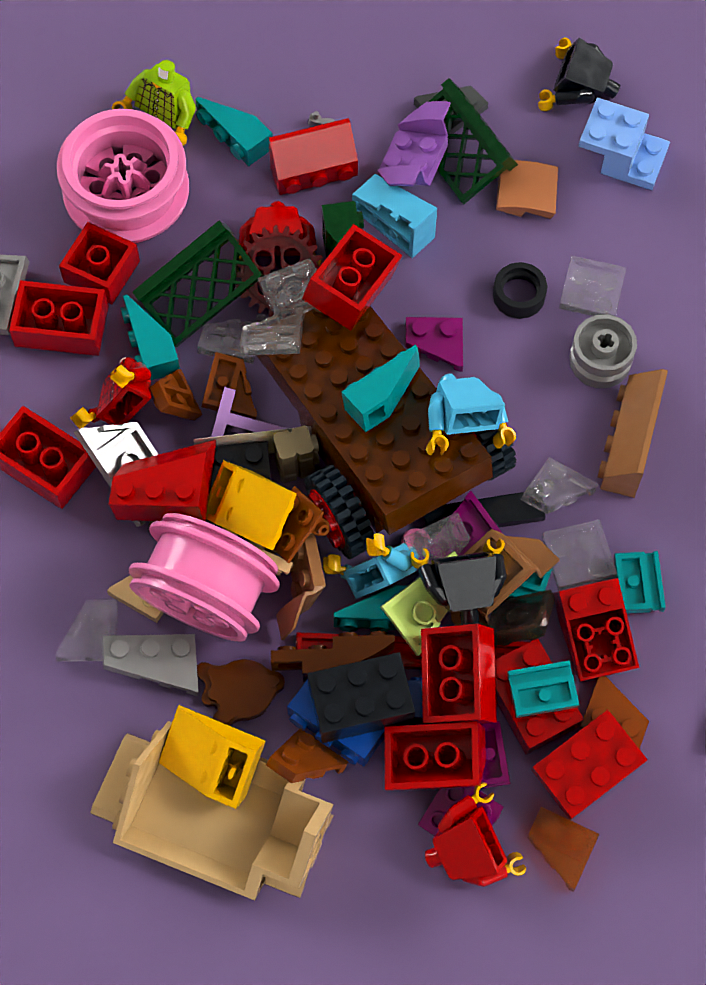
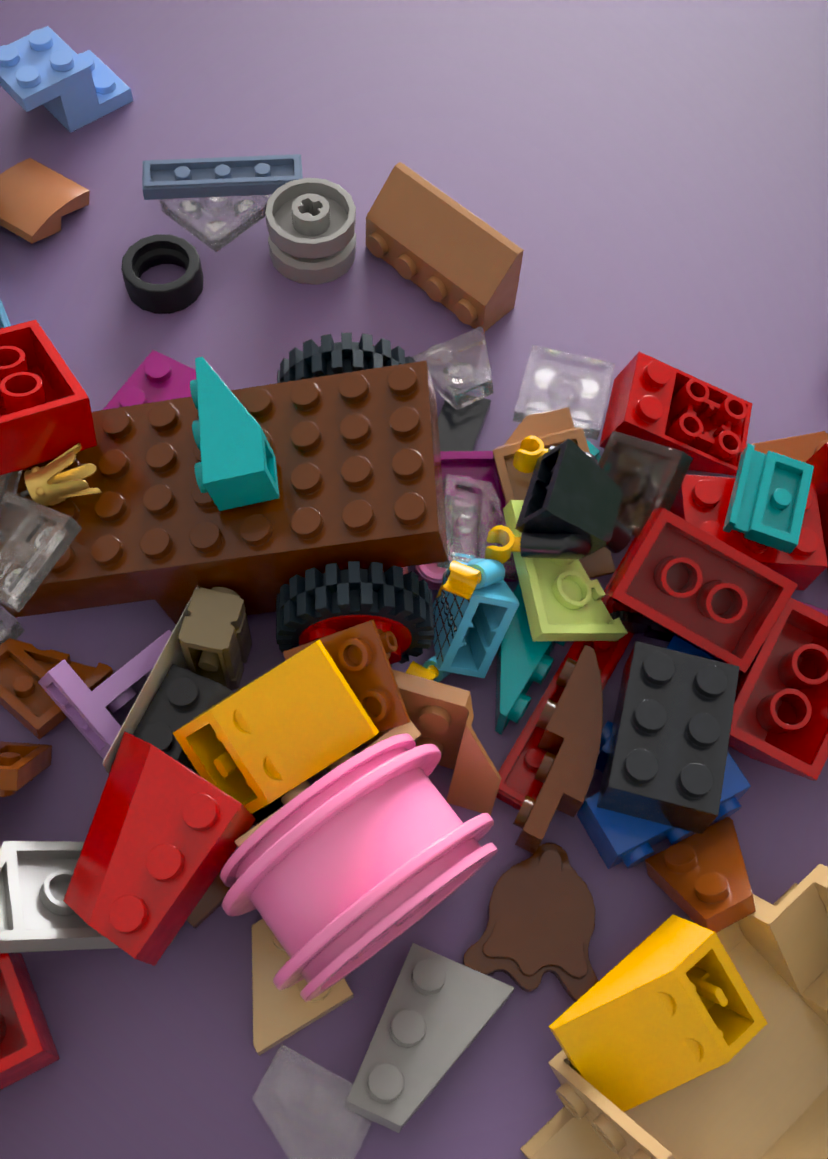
camera: 65 degrees left, 5 degrees down
(316, 322) = (51, 485): none -> pearl gold piece
(466, 407) = (339, 351): medium azure torso -> none
(610, 279) = (218, 176): none -> sand blue tile
(640, 581) = (623, 337): teal plate -> none

